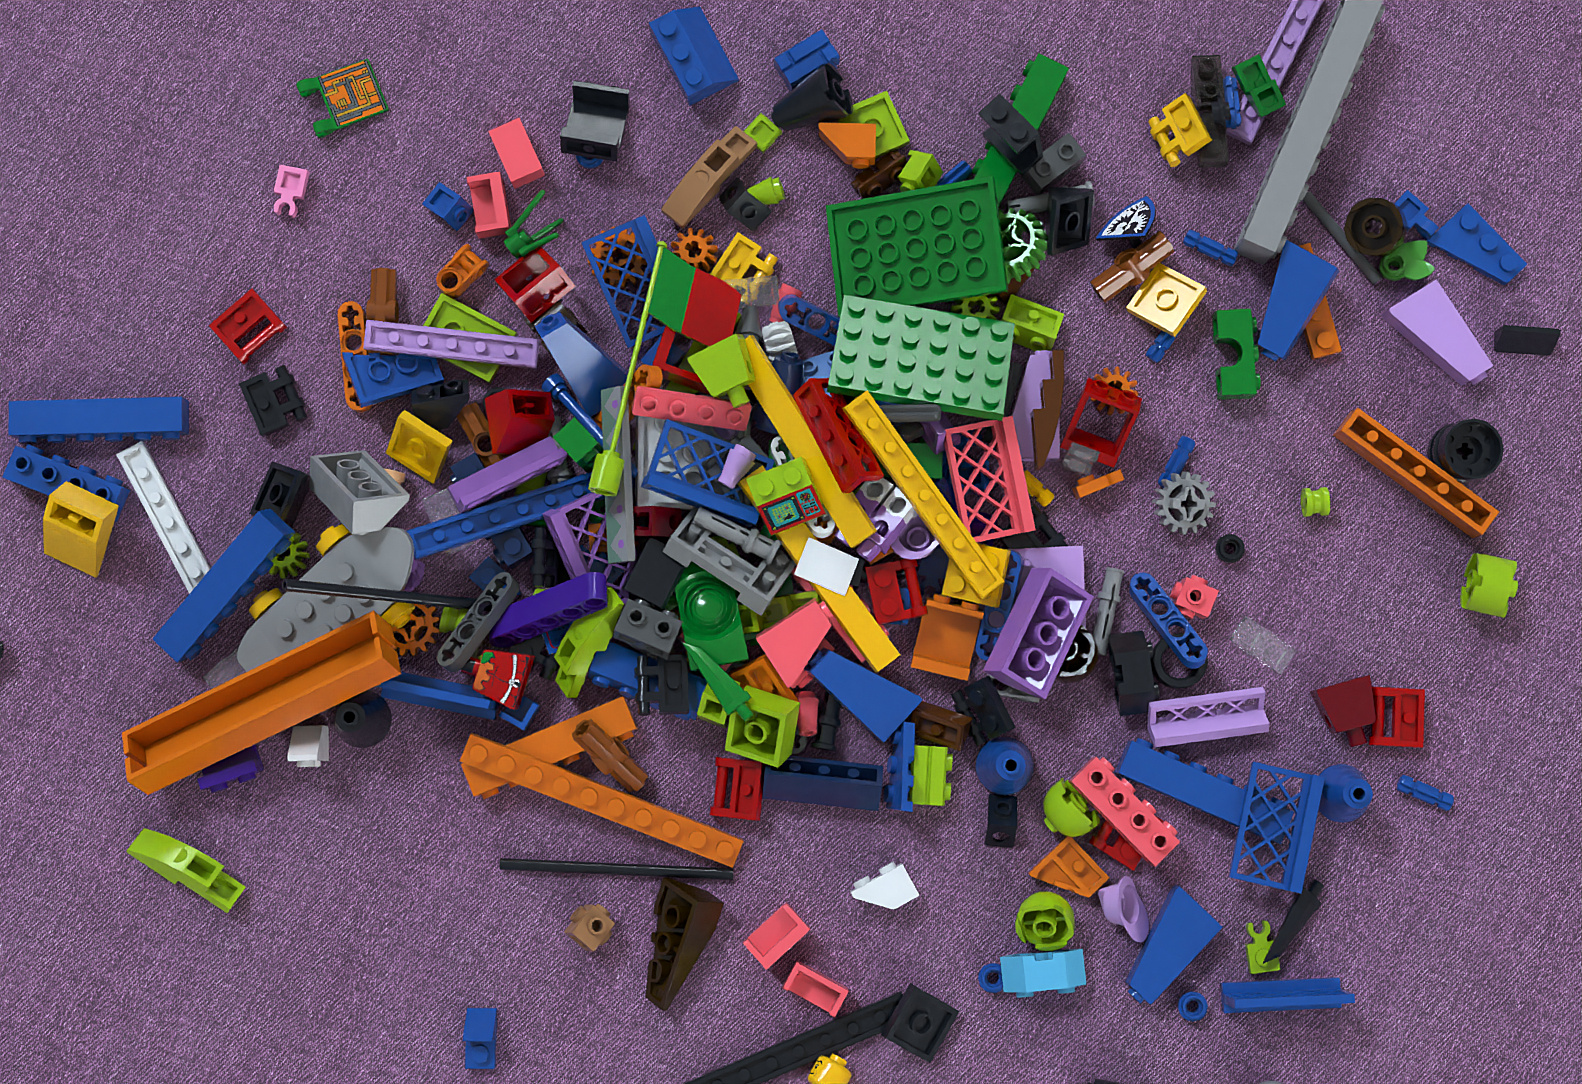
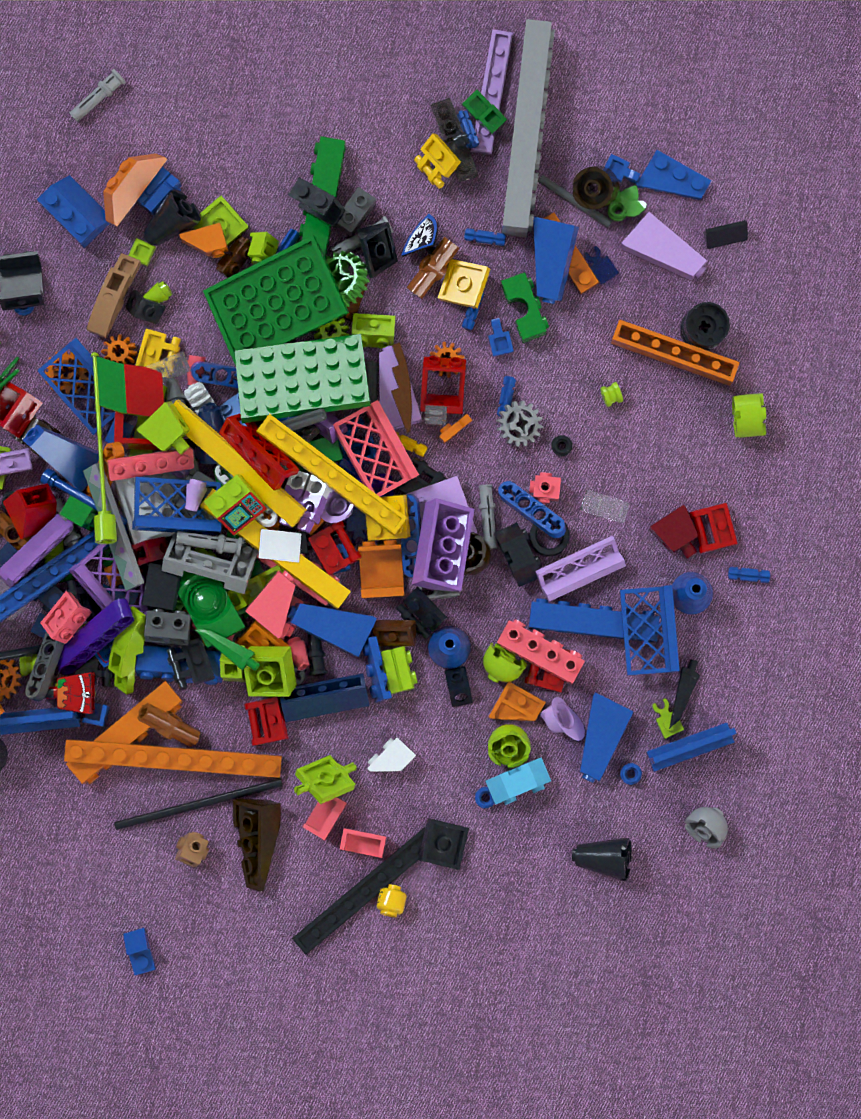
camera: 15 degrees left, 0 degrees up
(518, 575) = (65, 618): none -> coral bracket
(773, 40) = (129, 184): none -> orange wedge
(791, 890) = (325, 779): none -> lime plate
(1190, 389) = (500, 341): none -> blue plate
(1351, 334) = (602, 268): none -> clear blue plate

